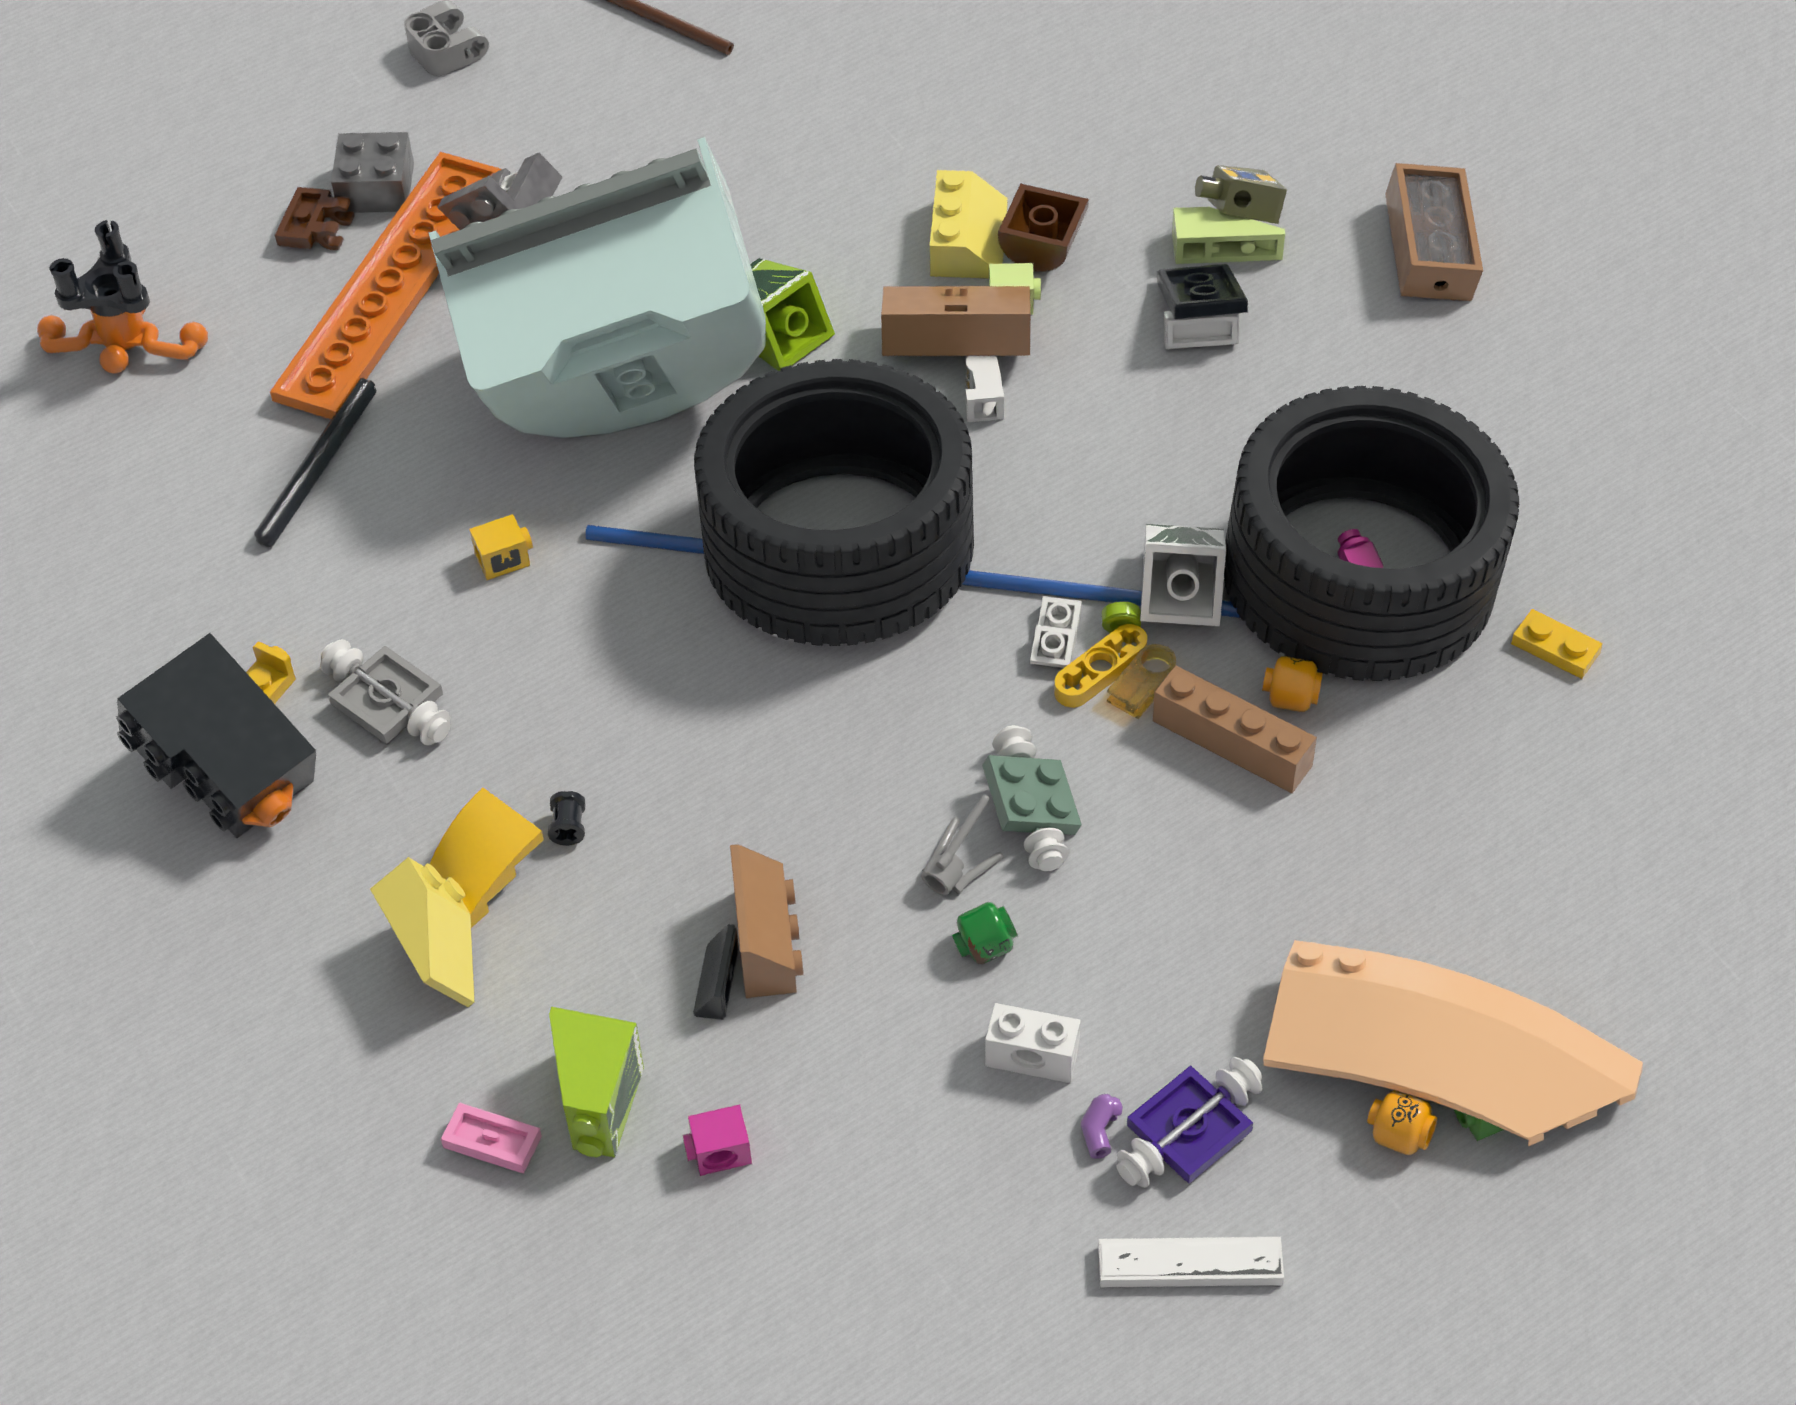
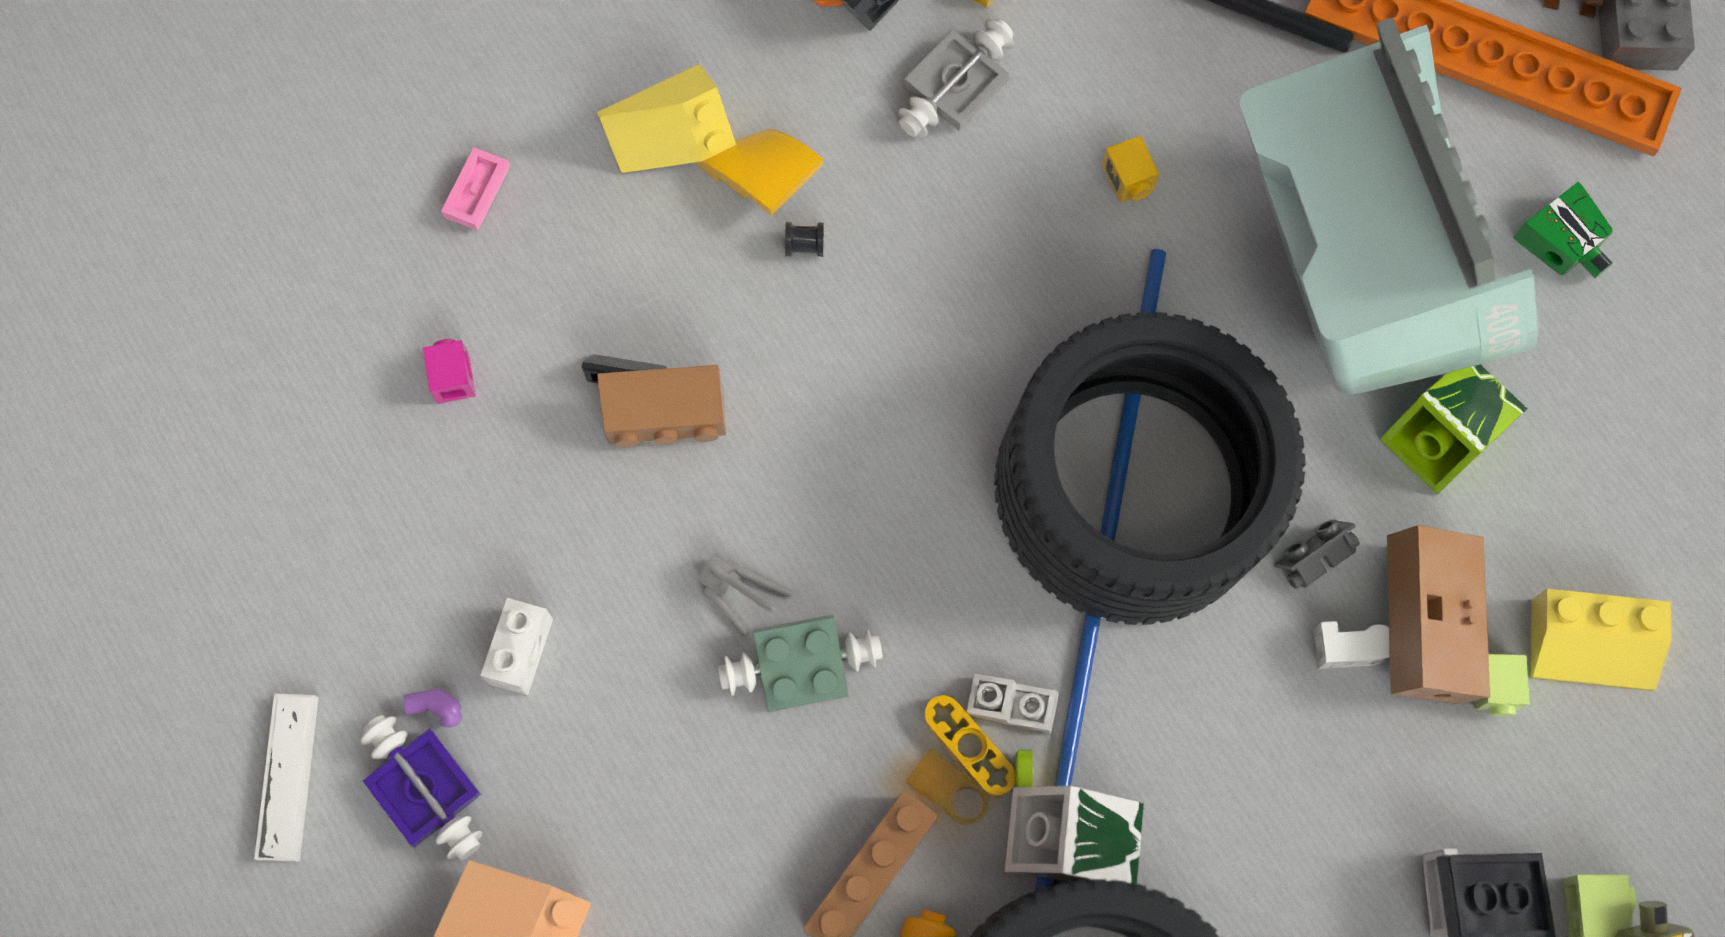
camera: 90 degrees right, 20 degrees up
(502, 192) = (1585, 153): flat silver brick -> none
(598, 1077) = (506, 260): lime slope -> none
(985, 933) = (644, 610): green head -> none
(1041, 226) = (1591, 717): reddish brown brick -> none

